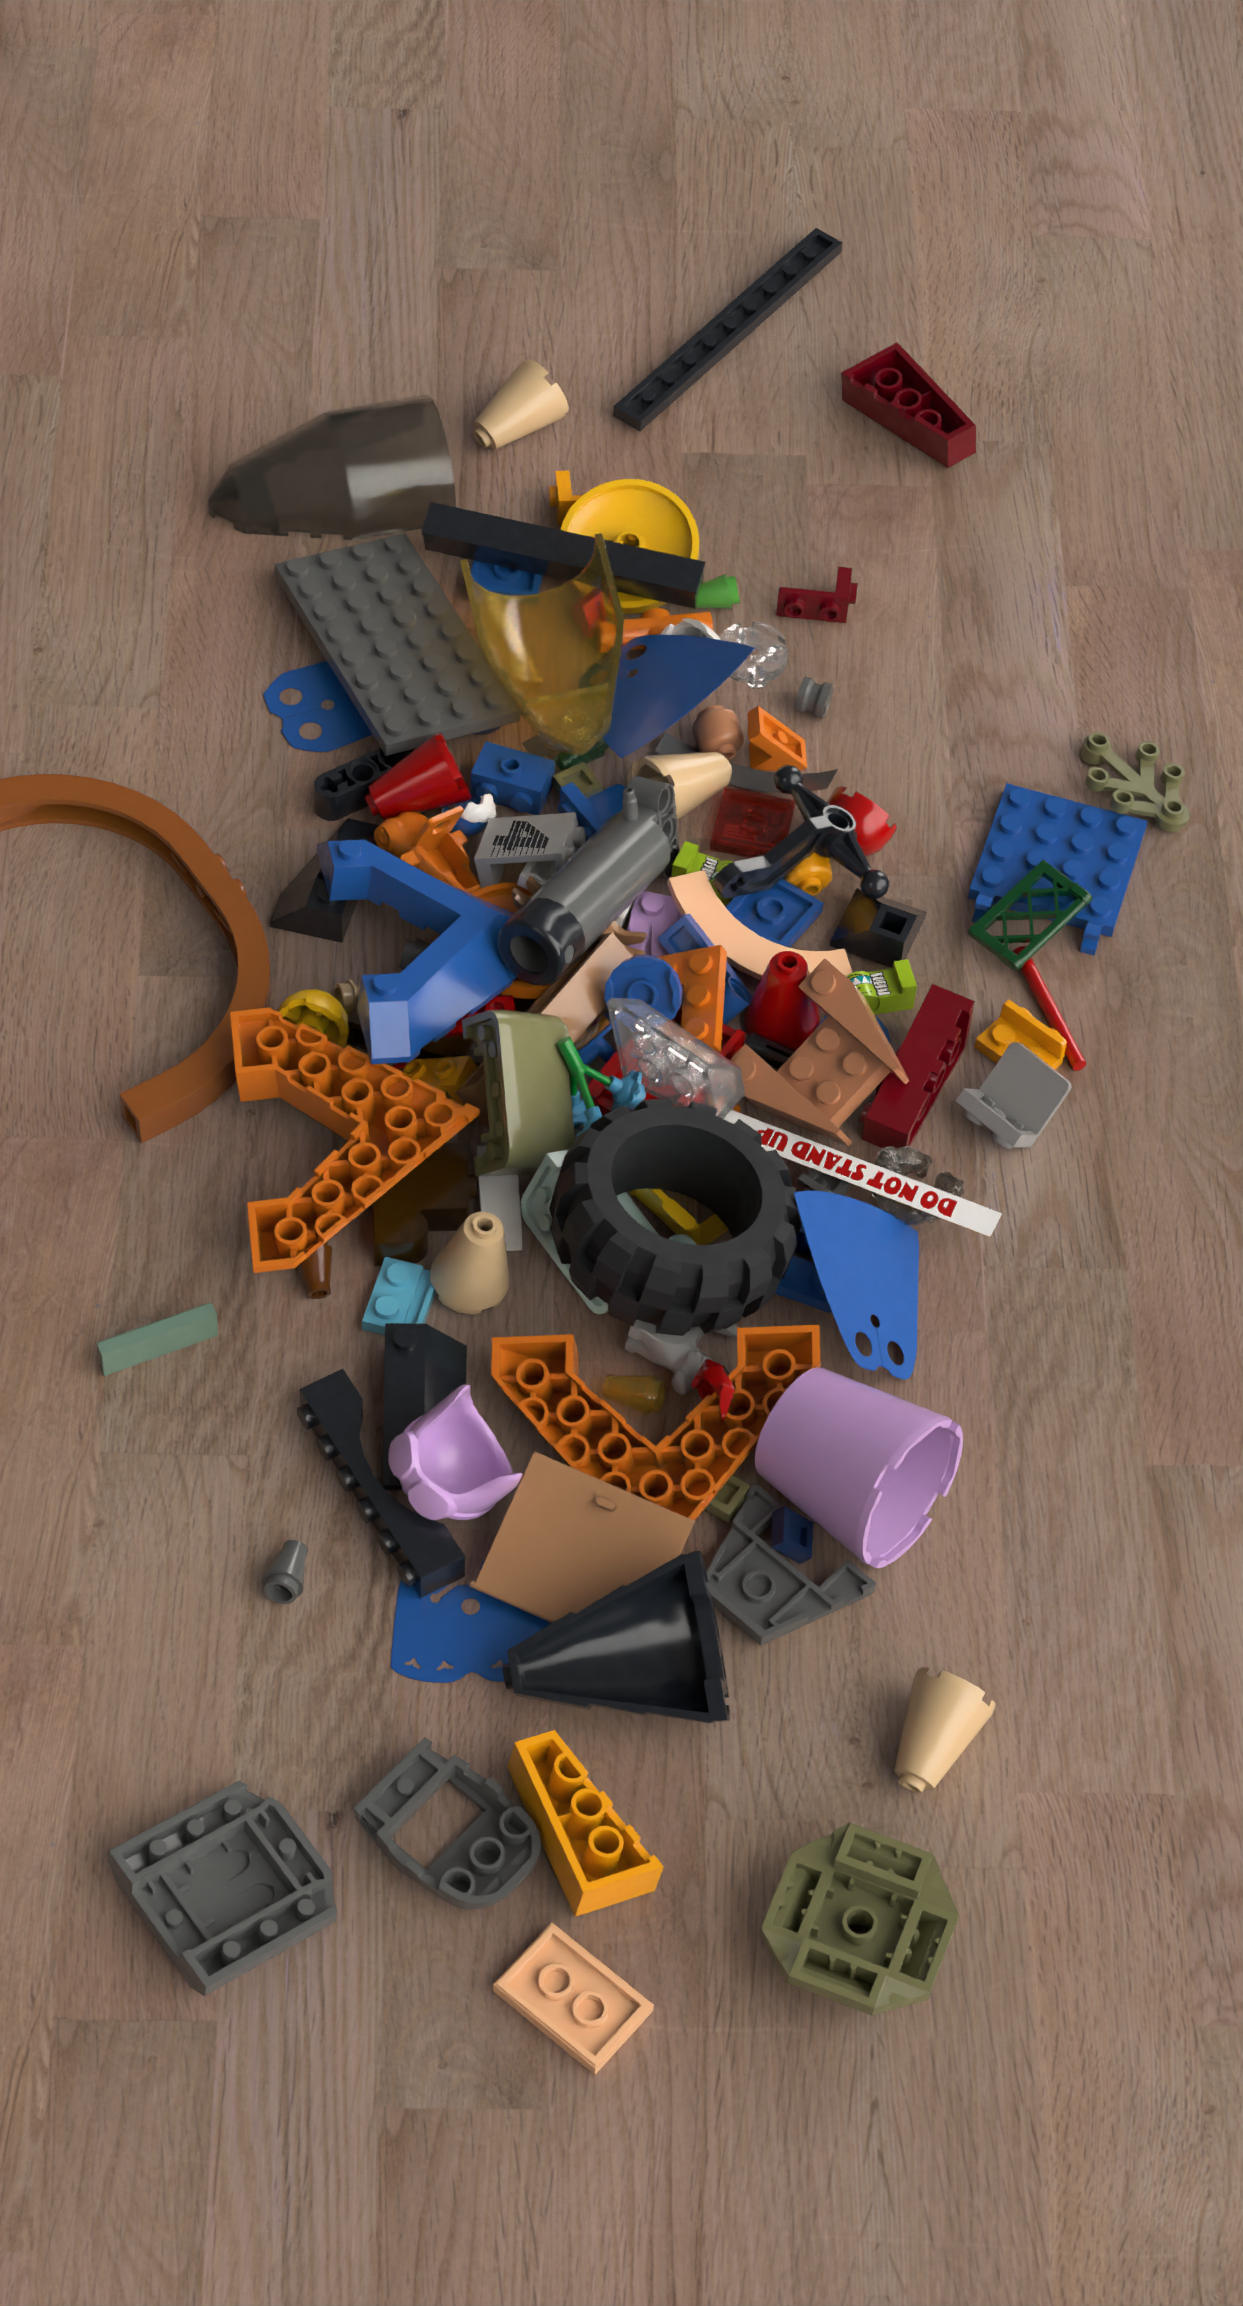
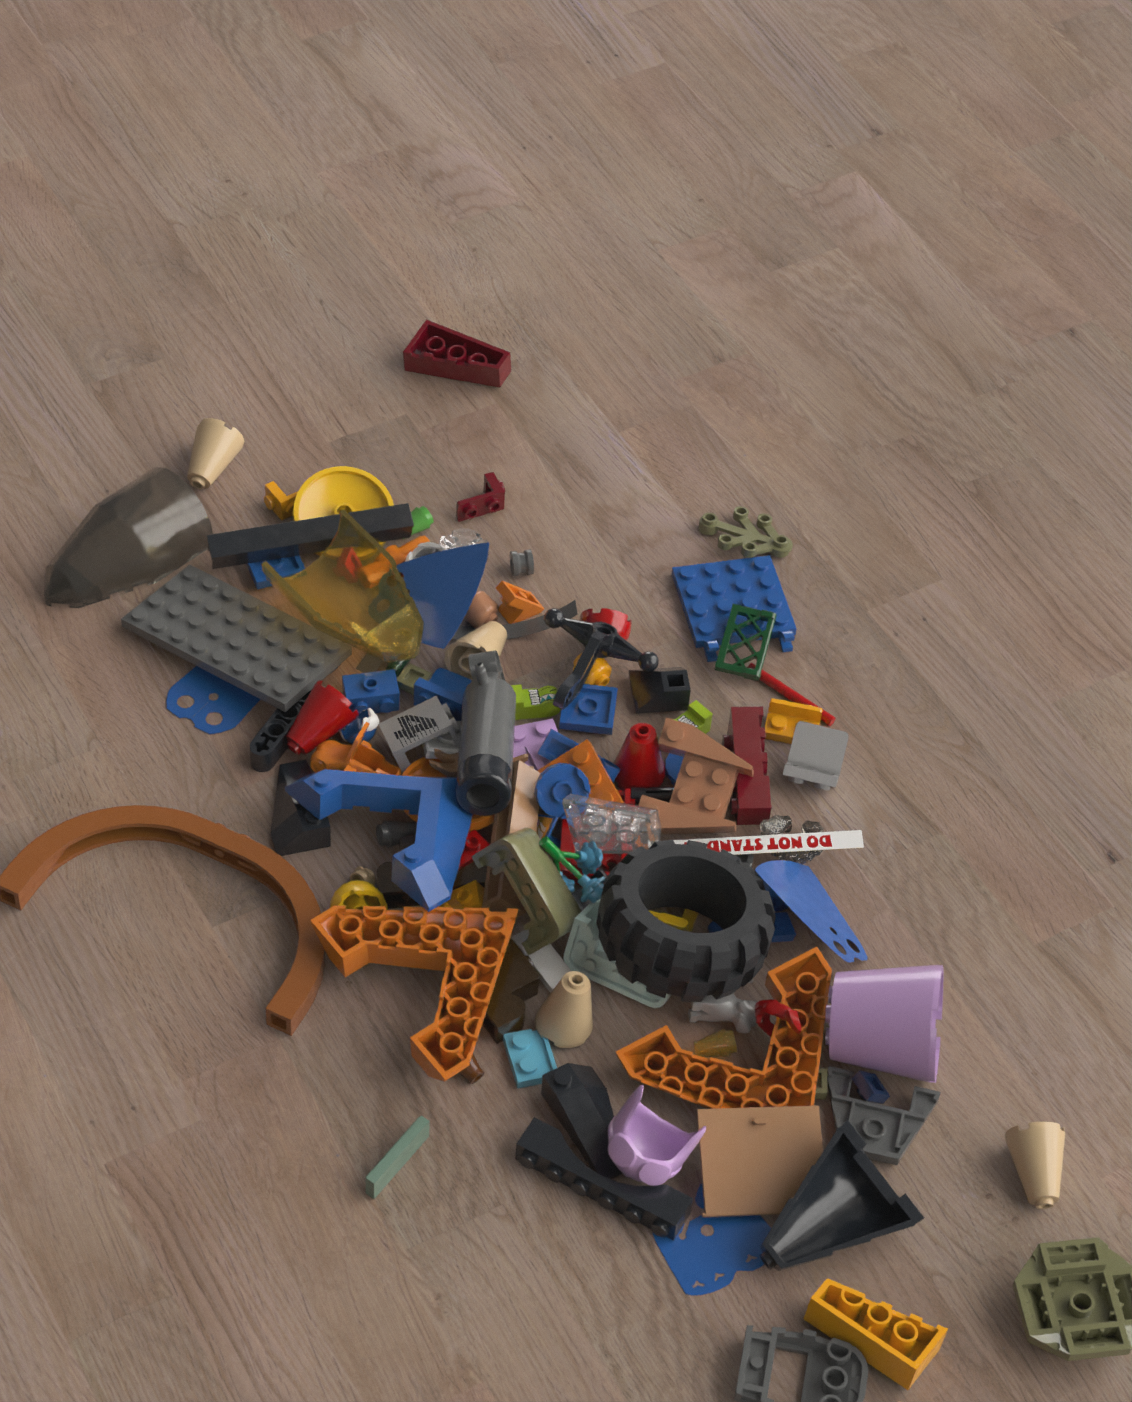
camera: 30 degrees left, 5 degrees down
(285, 1576) = (585, 1268): dark grey cone -> none
(727, 330) = (305, 354): black plate -> none
(744, 947) = (602, 737): light nougat tile -> none
(751, 822) = (537, 658): clear red tile -> none

